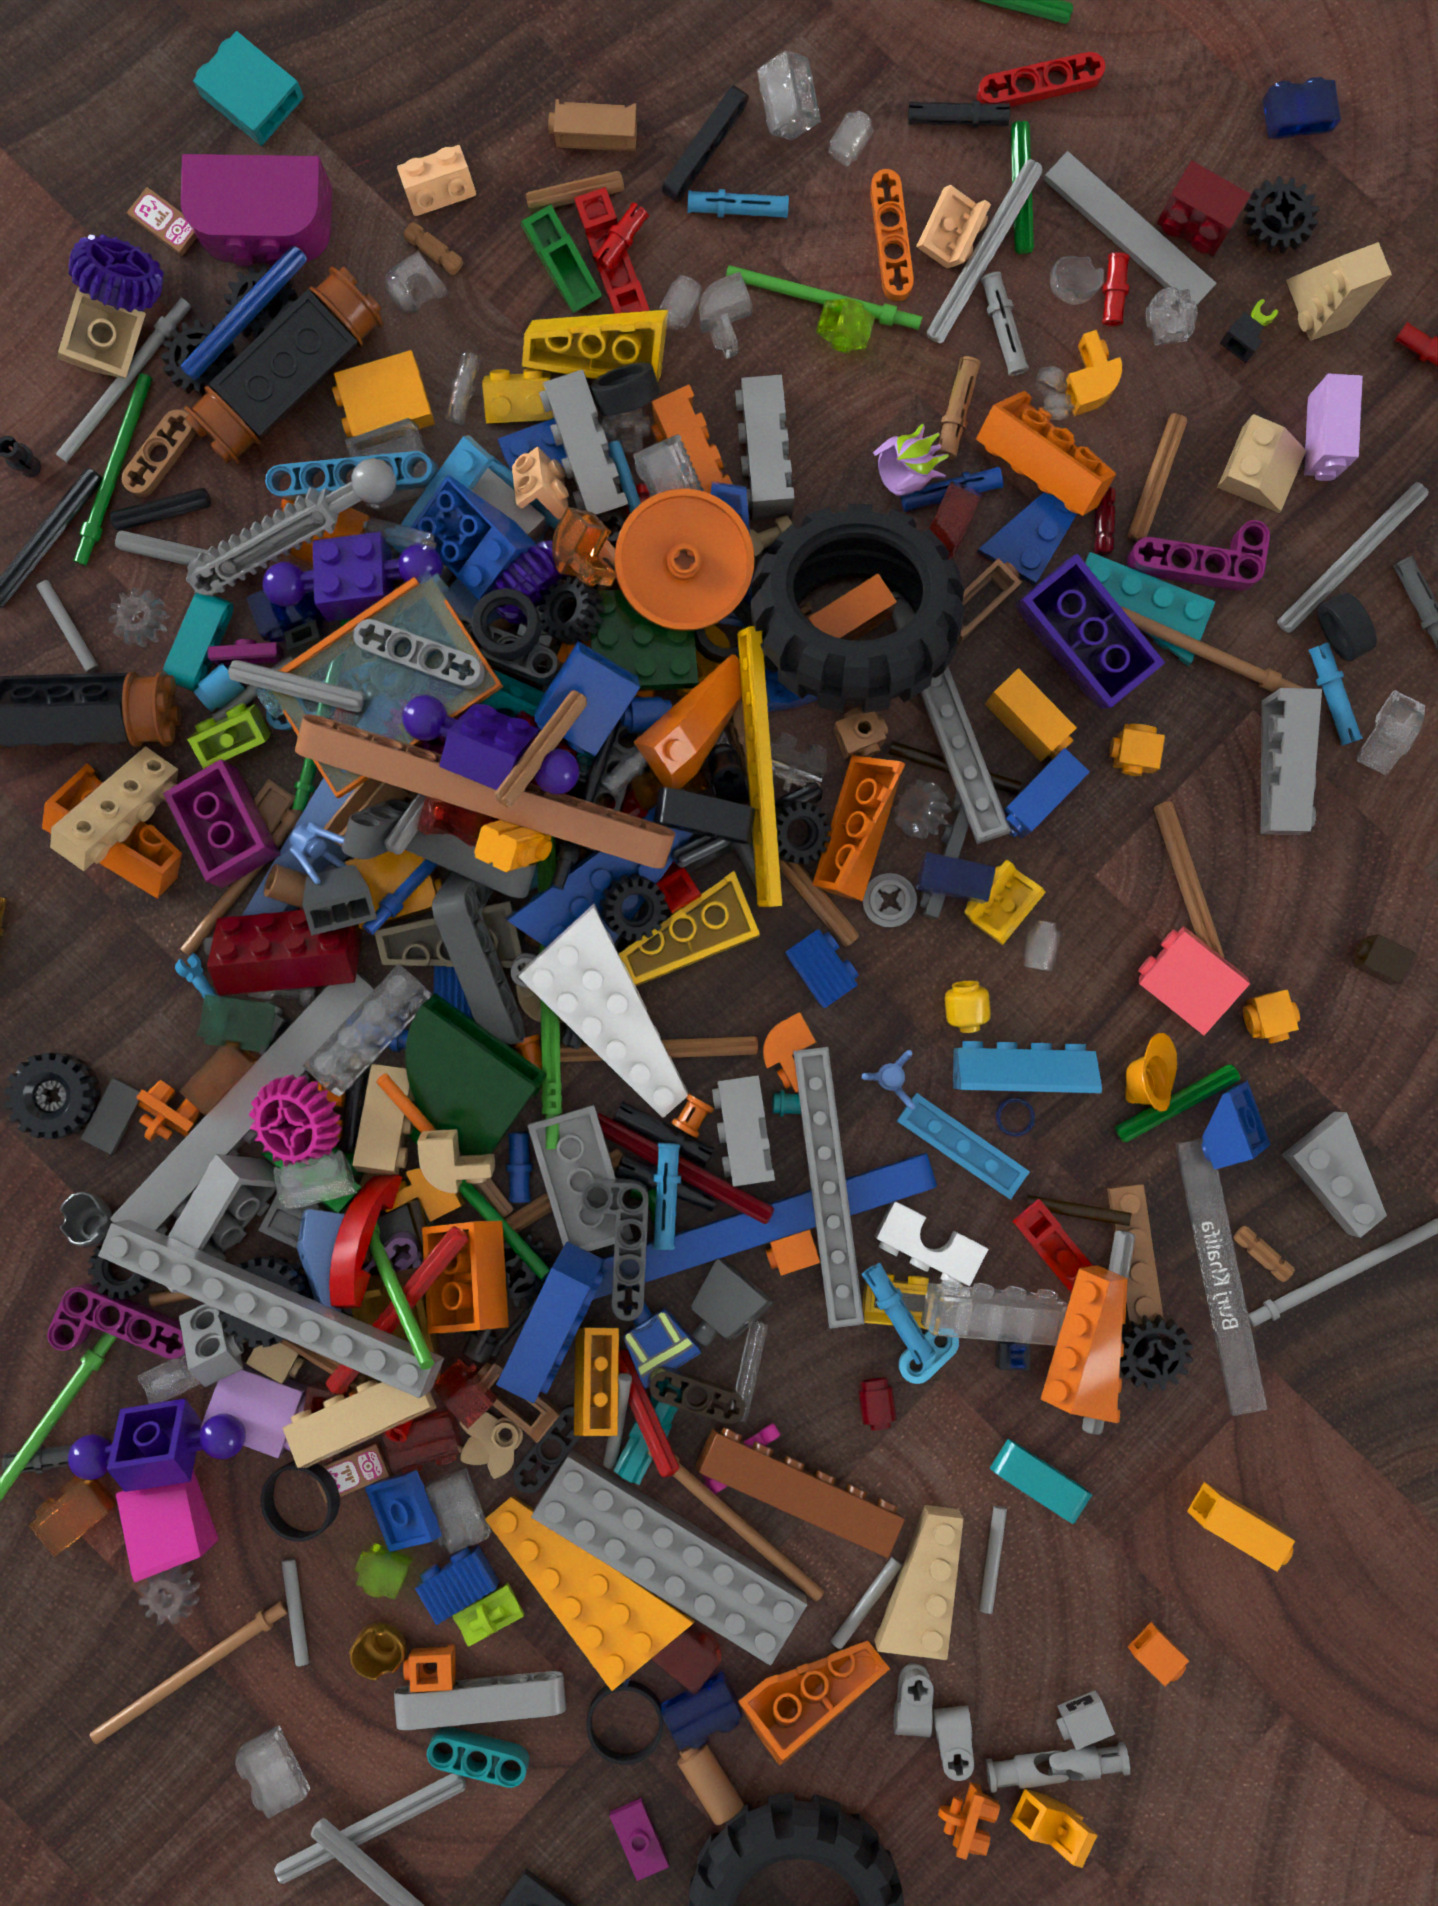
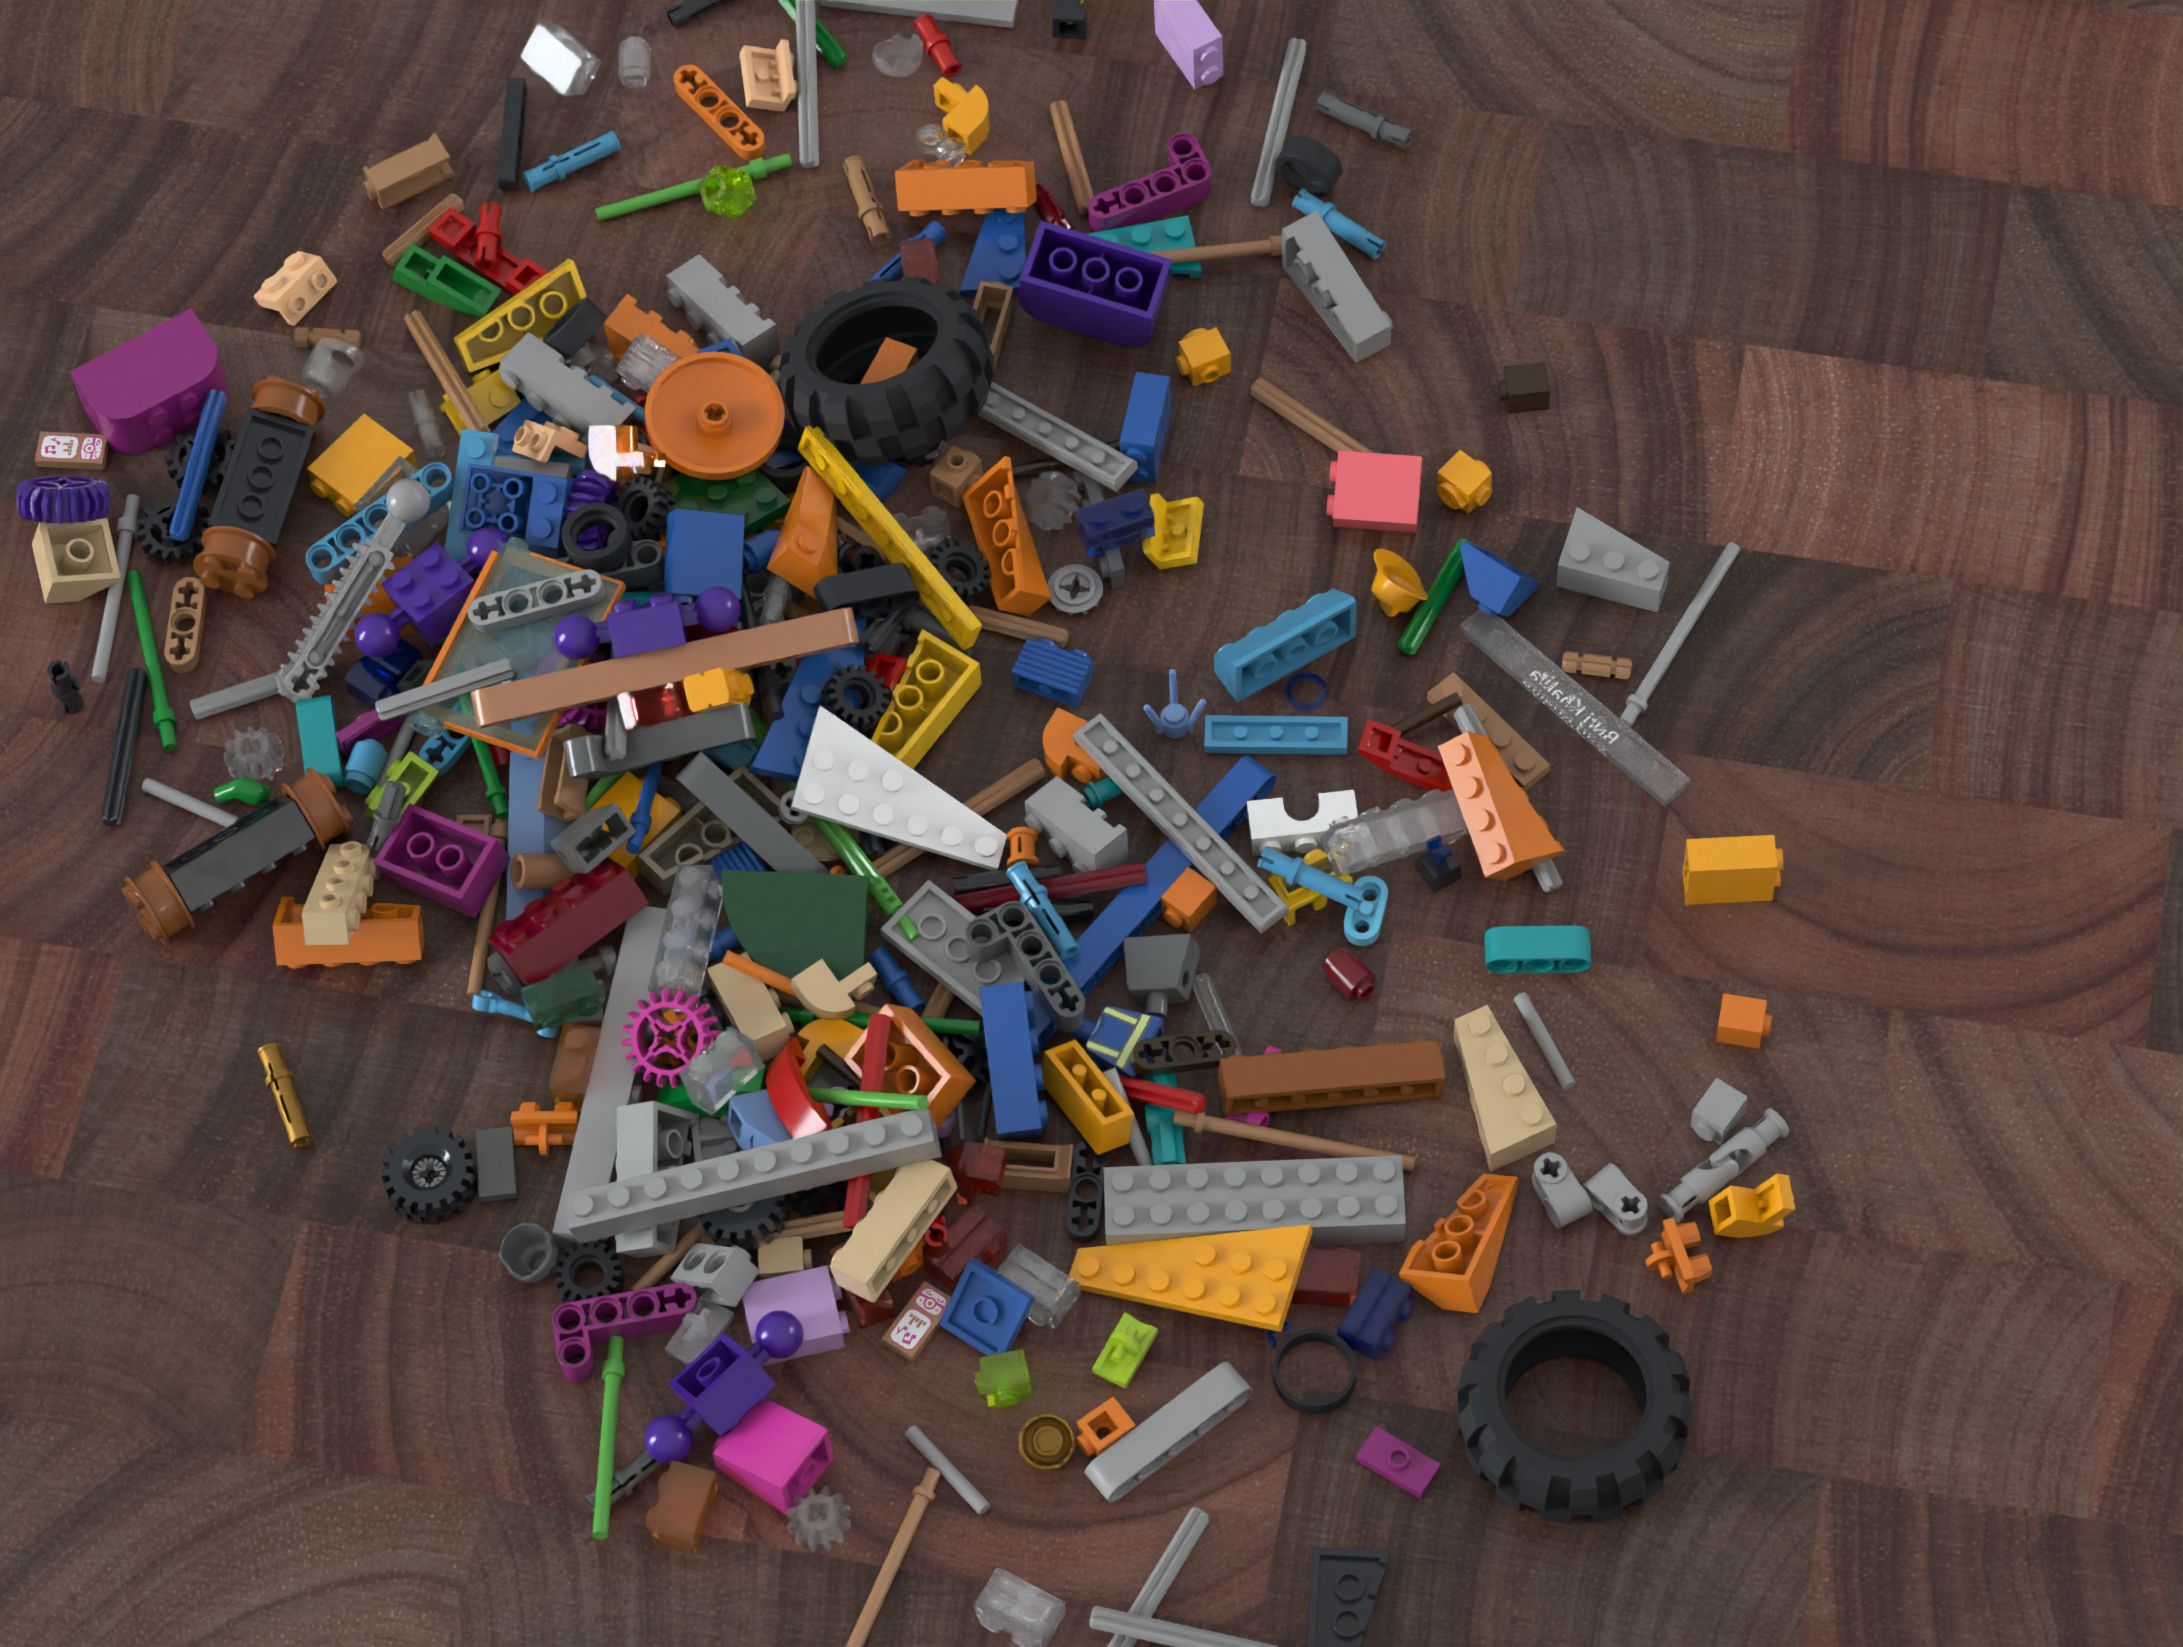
camera: 30 degrees left, 25 degrees down
(112, 645) = (244, 790): none -> green arm
(160, 509) = (215, 665): black axle -> none
(194, 760) = (386, 814): none -> dark grey axle
(248, 88) = (83, 310): teal brick -> none
(273, 1518) = (853, 1348): black tyre -> none
(309, 842) = (536, 822): medium blue plant -> none
(400, 534) = (459, 538): clear axle -> none
(456, 1584) = (1077, 1347): blue brick -> none
(462, 1764) = (1212, 1463): teal beam -> none
(488, 1446) = (1025, 1223): tan plate -> none
(501, 358) = (445, 372): none -> medium nougat axle
(543, 744) = (693, 588): medium nougat axle -> none
(681, 302) = (574, 246): clear brick -> none
(710, 1783) = (1422, 1368): medium nougat brick -> none
(720, 306) = (613, 239): clear brick -> none
(866, 1603) = (1459, 1143): light grey bar -> none
(908, 462) = (852, 255): lavender hair -> none
(967, 1006) = (1200, 625): yellow head -> none
(1000, 311) = (852, 113): light grey pin -> none
(1031, 716) = (1090, 376): light orange brick -> none
(1041, 945) = (1231, 545): clear brick -> none
(1168, 1356) = (1566, 777): black gear -> none
(1171, 316) = (998, 36): clear brick -> none
(1263, 464) = (1153, 97): tan slope -> none
(1393, 734) = (1406, 224): clear brick -> none

